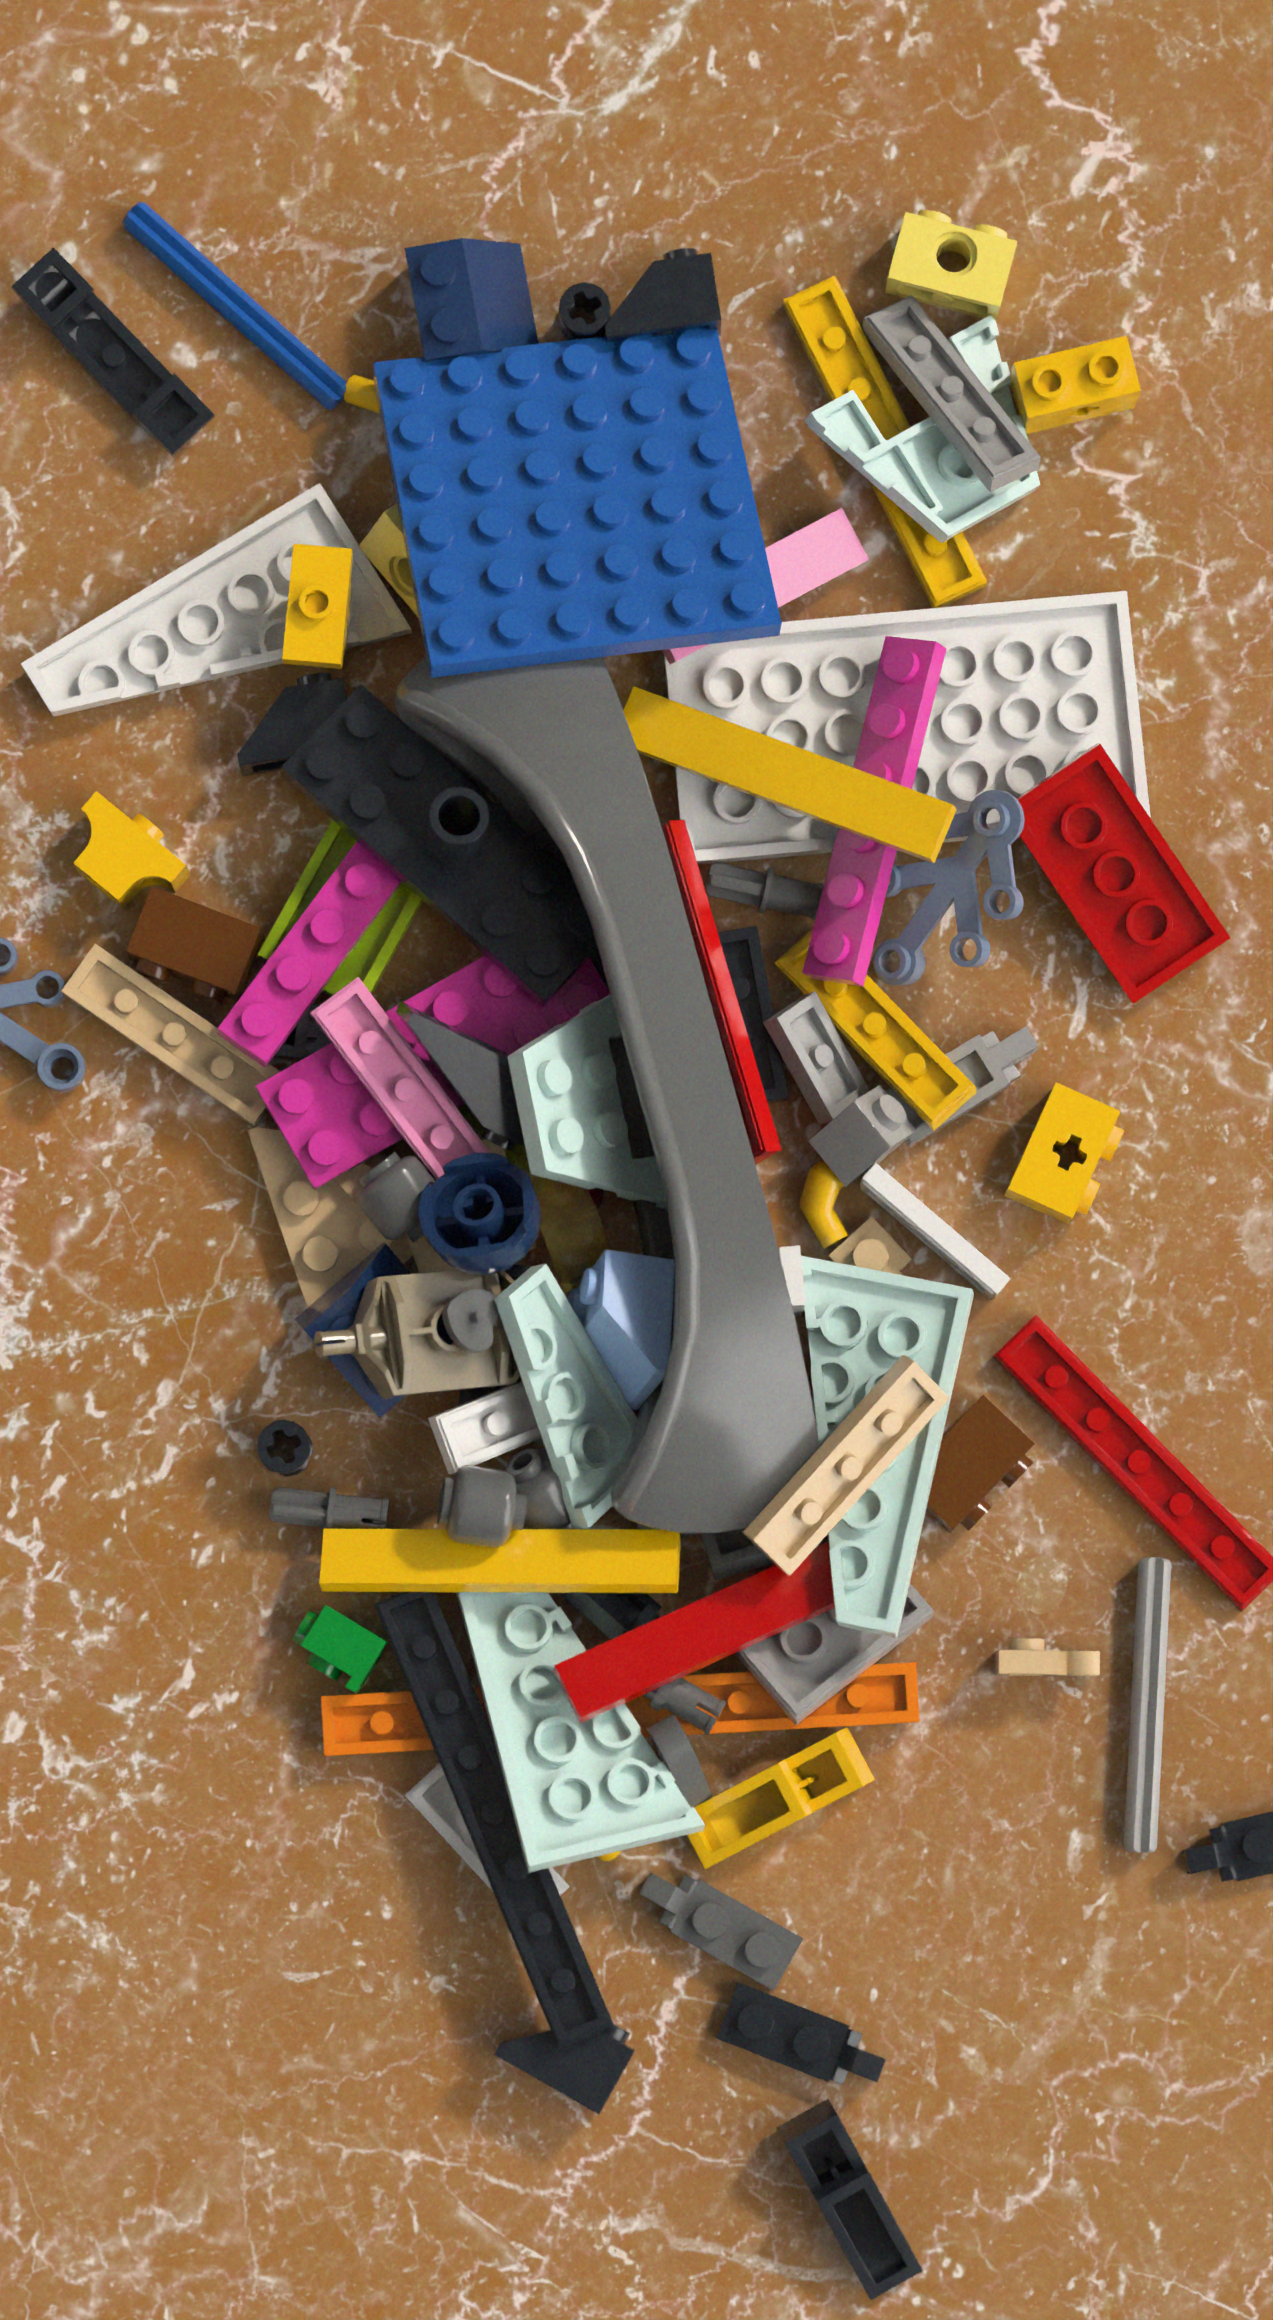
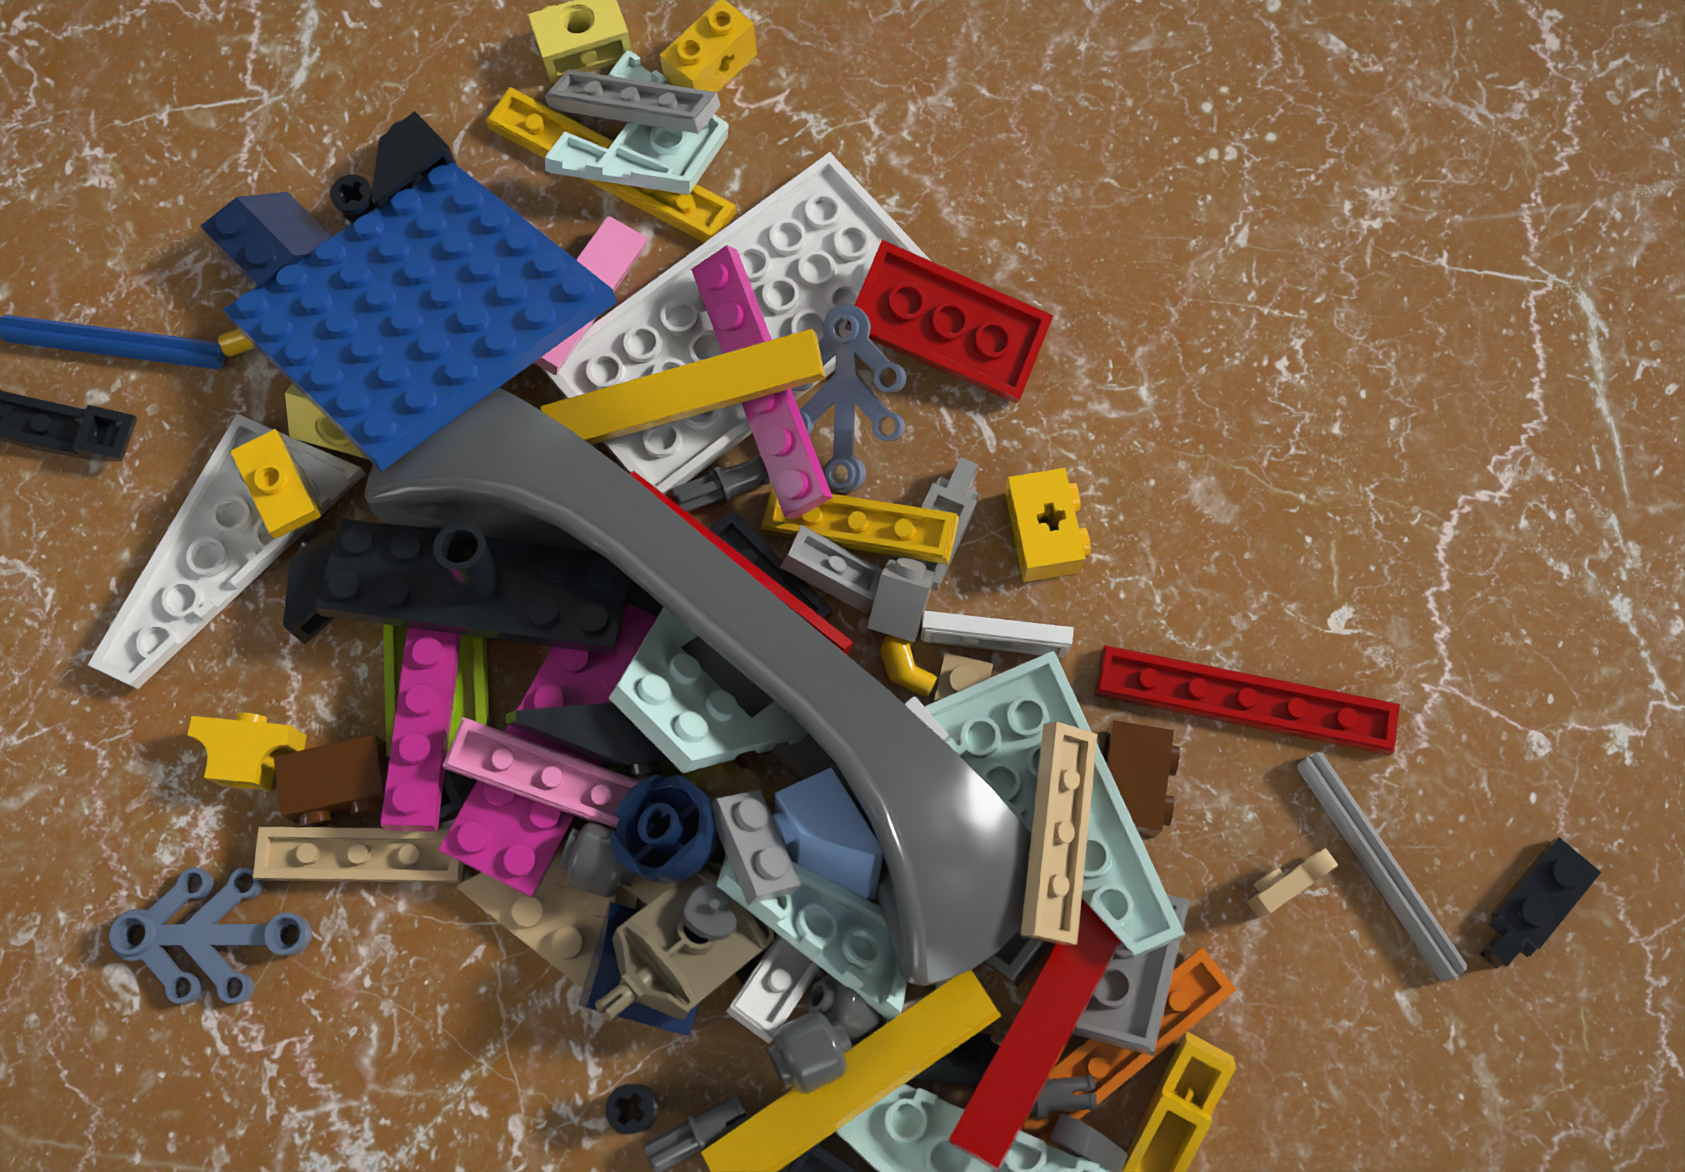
camera: 30 degrees left, 10 degrees down
(552, 1286) = (754, 847): none -> light grey plate

